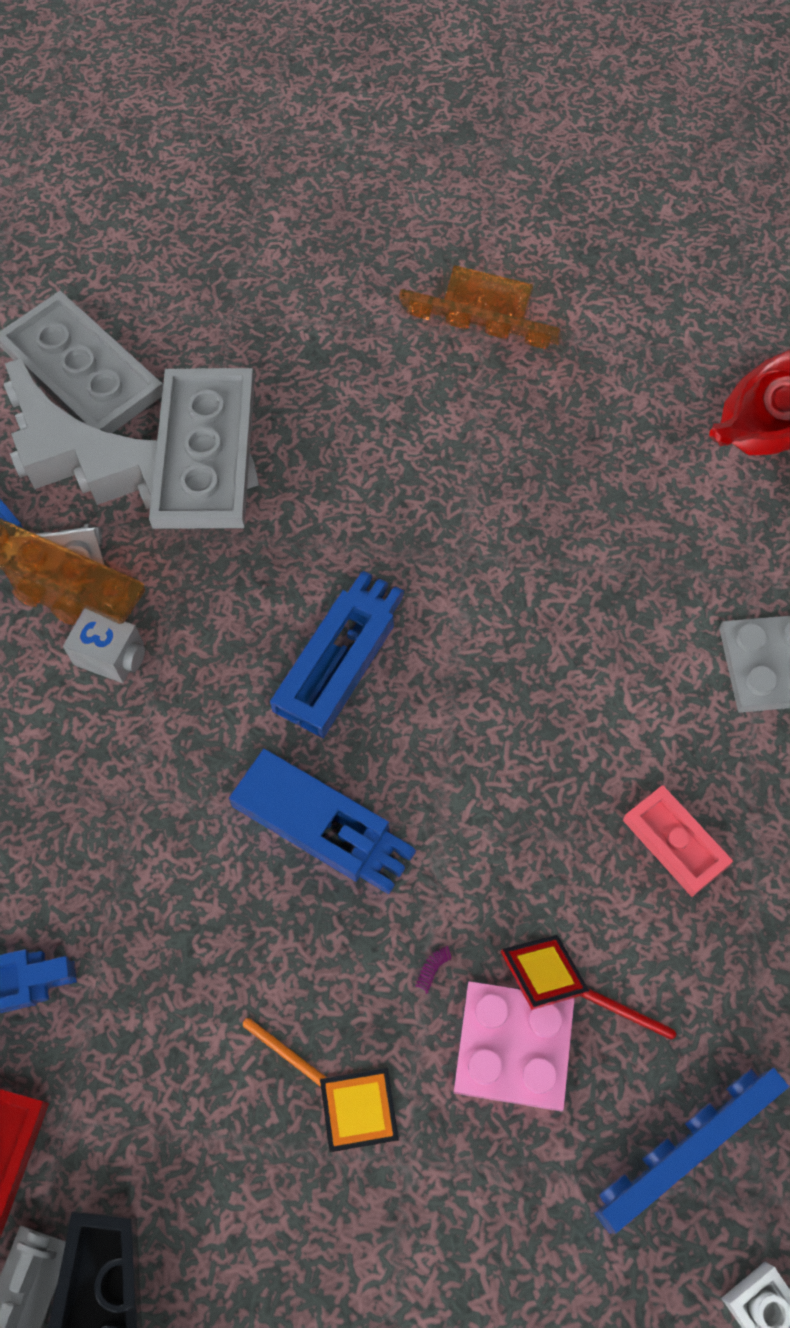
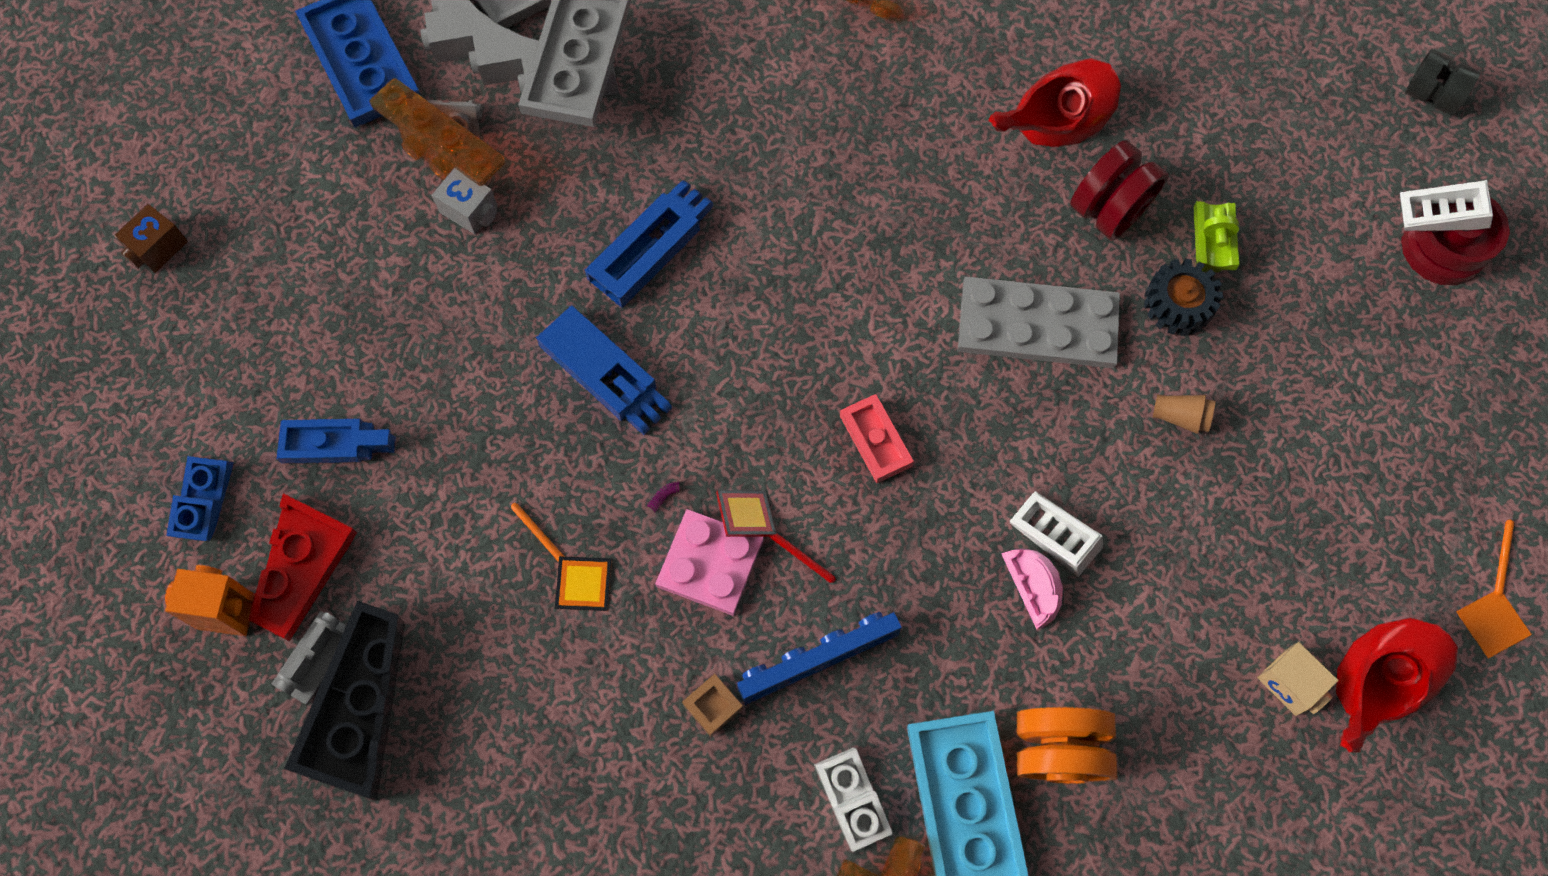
camera: 10 degrees right, 5 degrees up
(571, 1246) = (712, 705): none -> medium nougat plate

